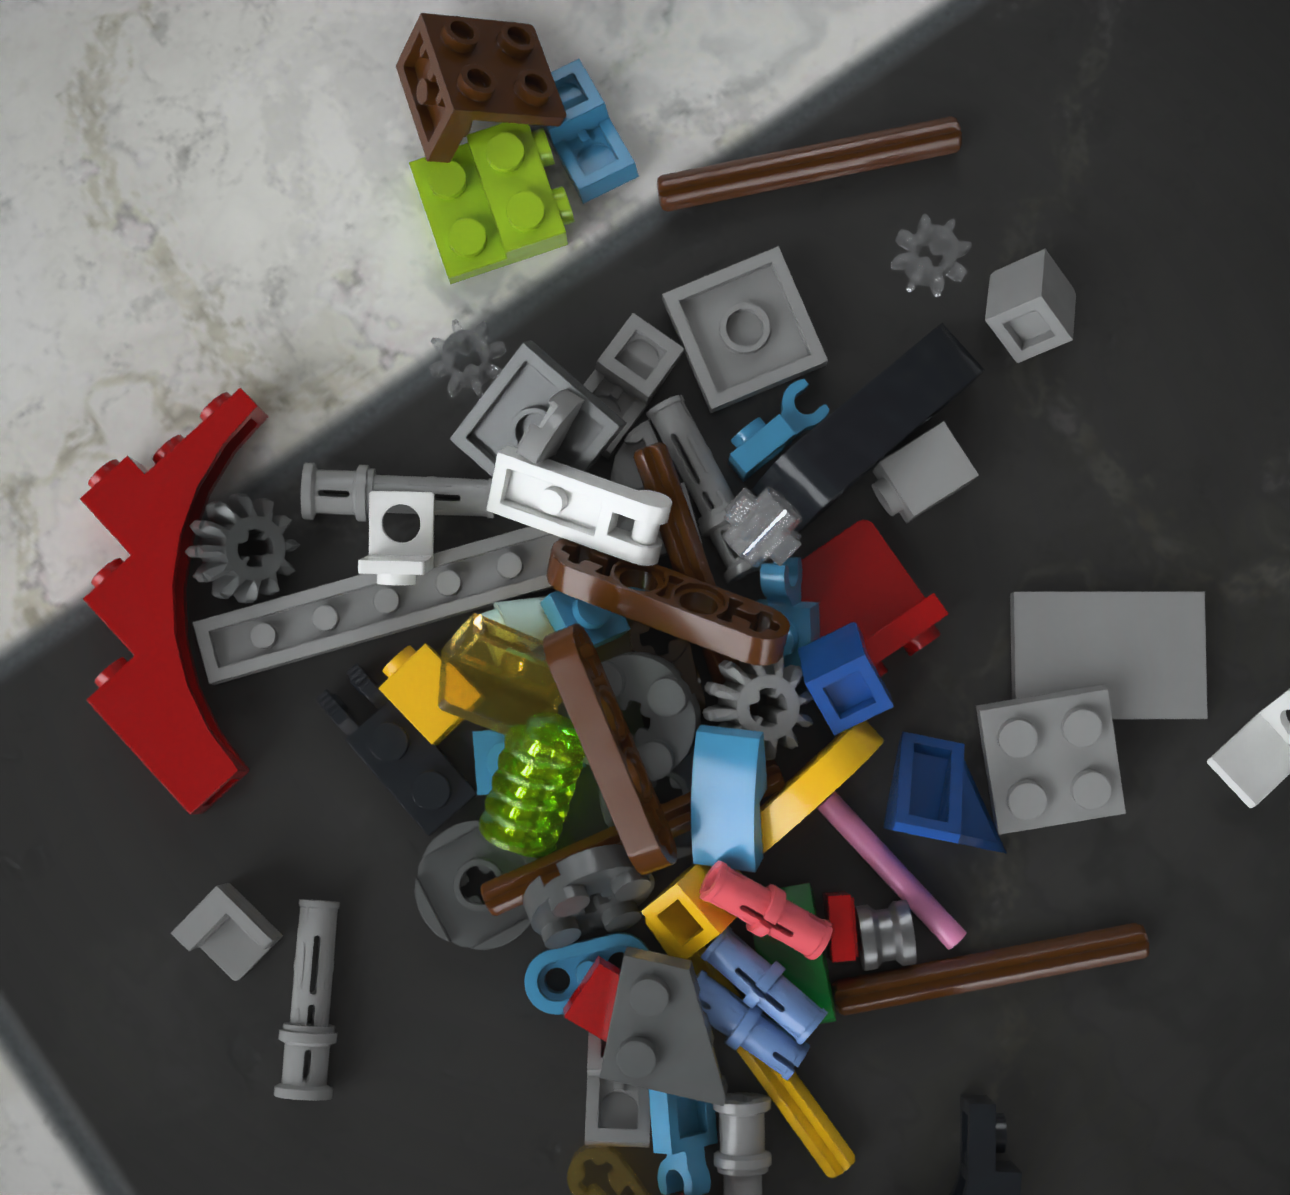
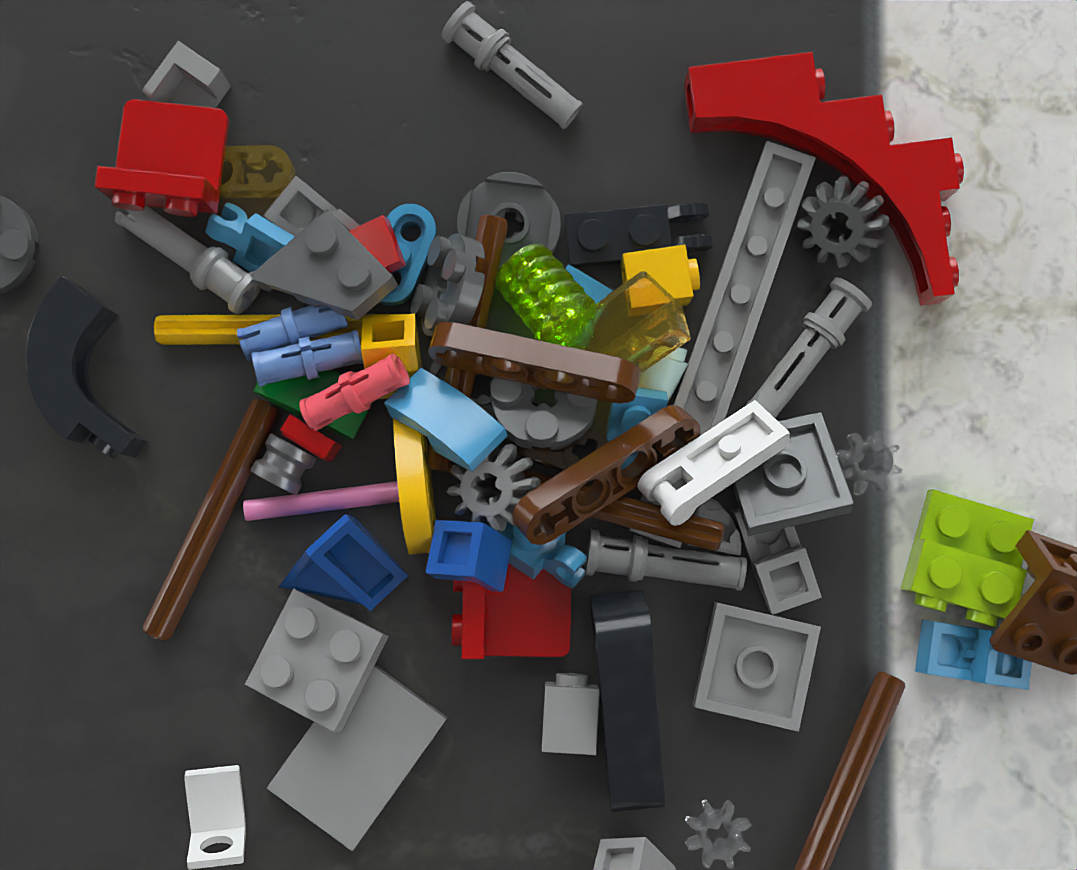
camera: 125 degrees right, 0 degrees up
(228, 931) = (596, 46): light grey panel -> none
(399, 561) = (765, 312): white bracket -> none
(544, 441) = (773, 470): light grey tile -> none
(762, 442) = (670, 620): dark azure plate -> none
(762, 527) = (611, 574): clear gear -> none

